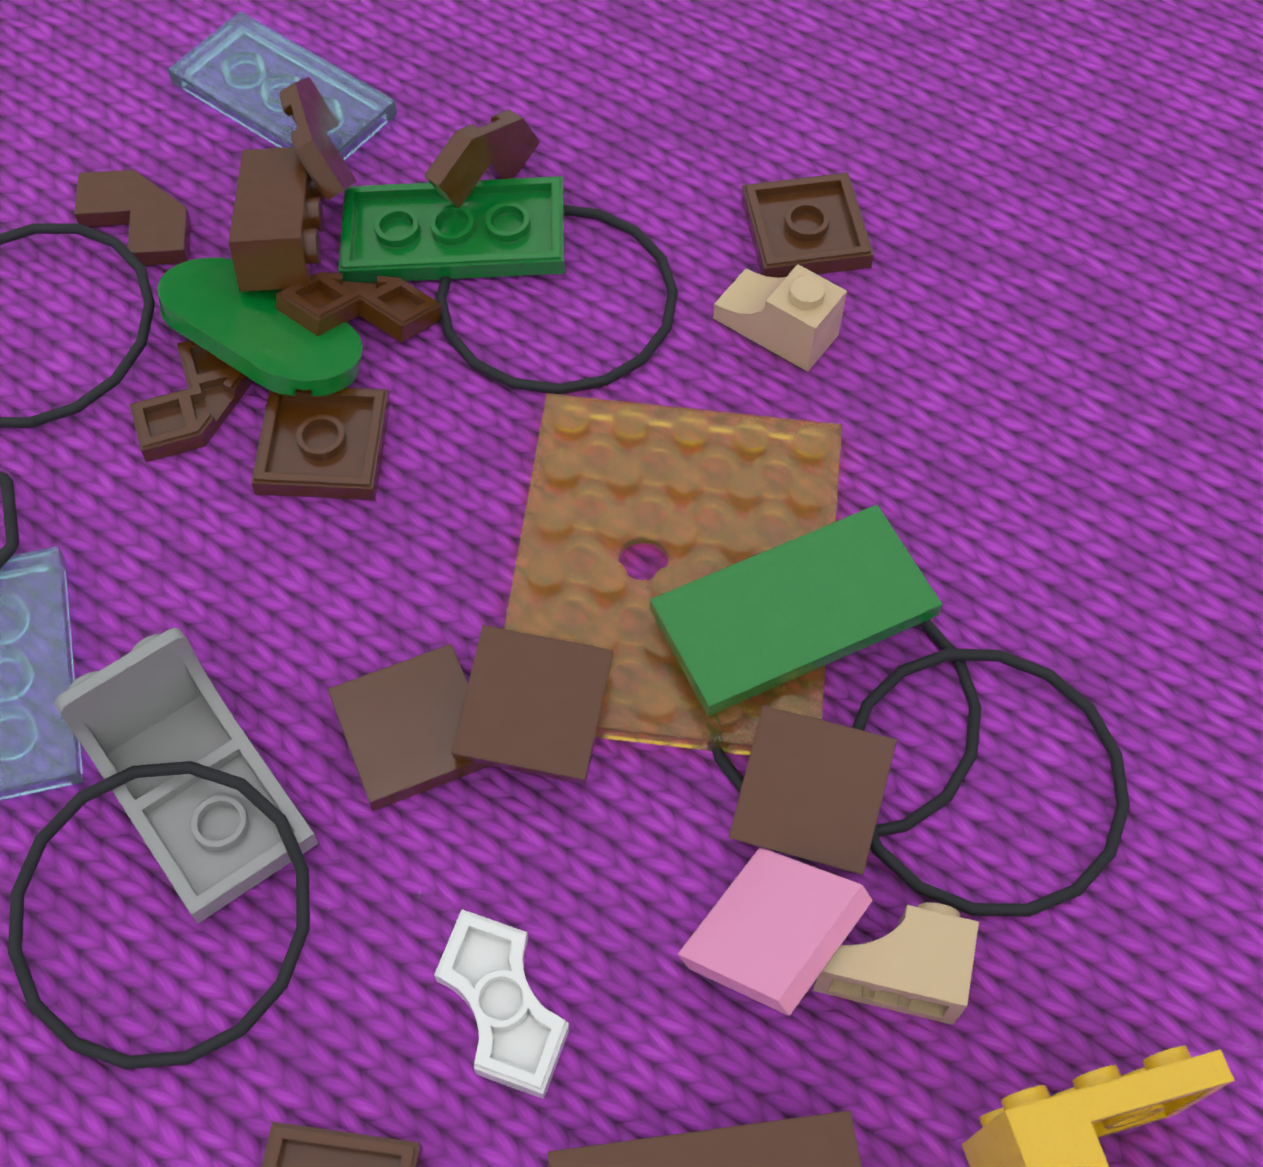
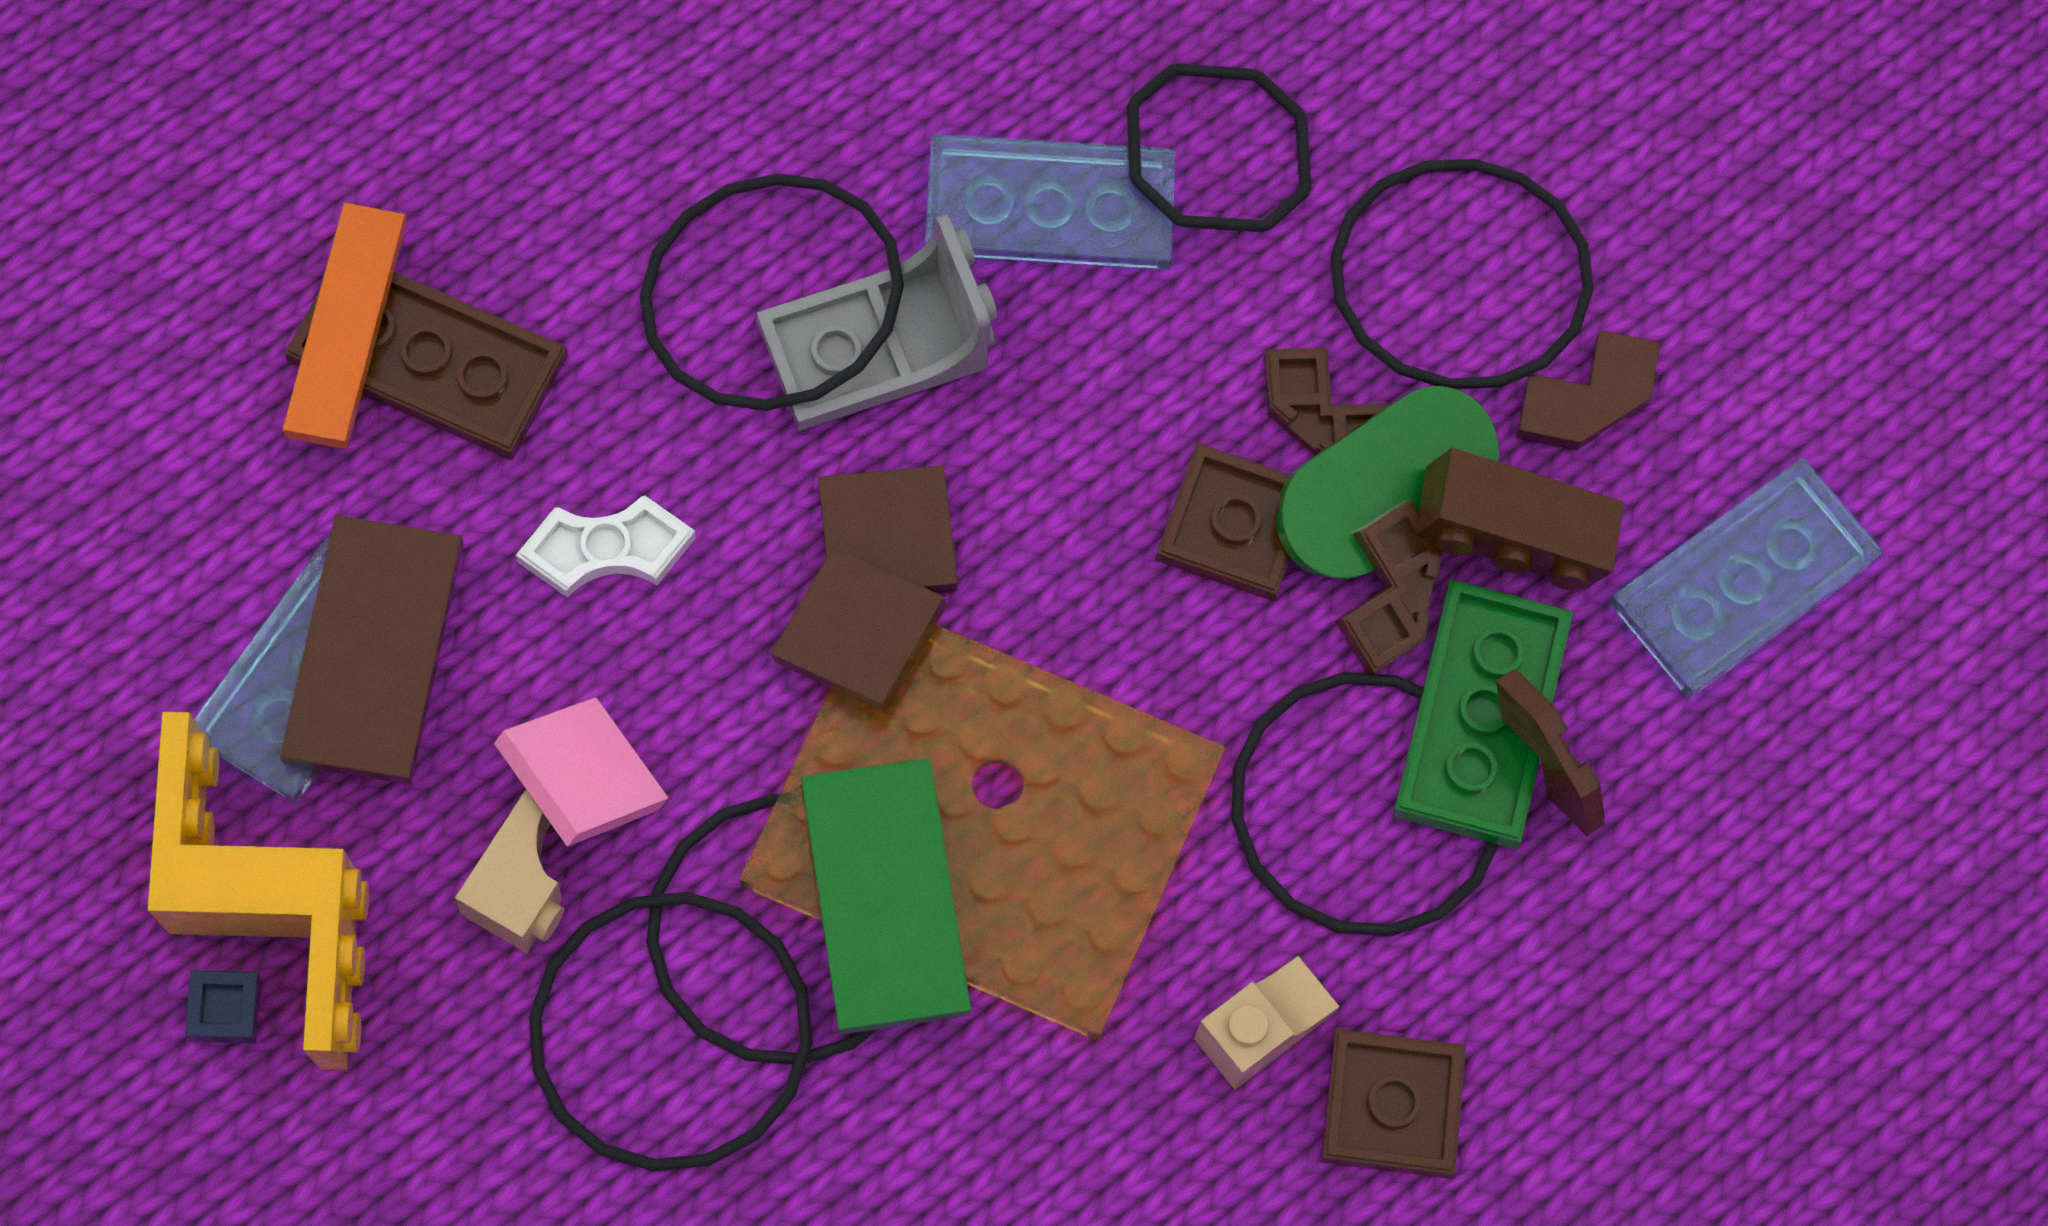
camera: 100 degrees right, 10 degrees up
(311, 138) = (1586, 573): tile -> none
(813, 789) = (700, 853): reddish brown tile -> none

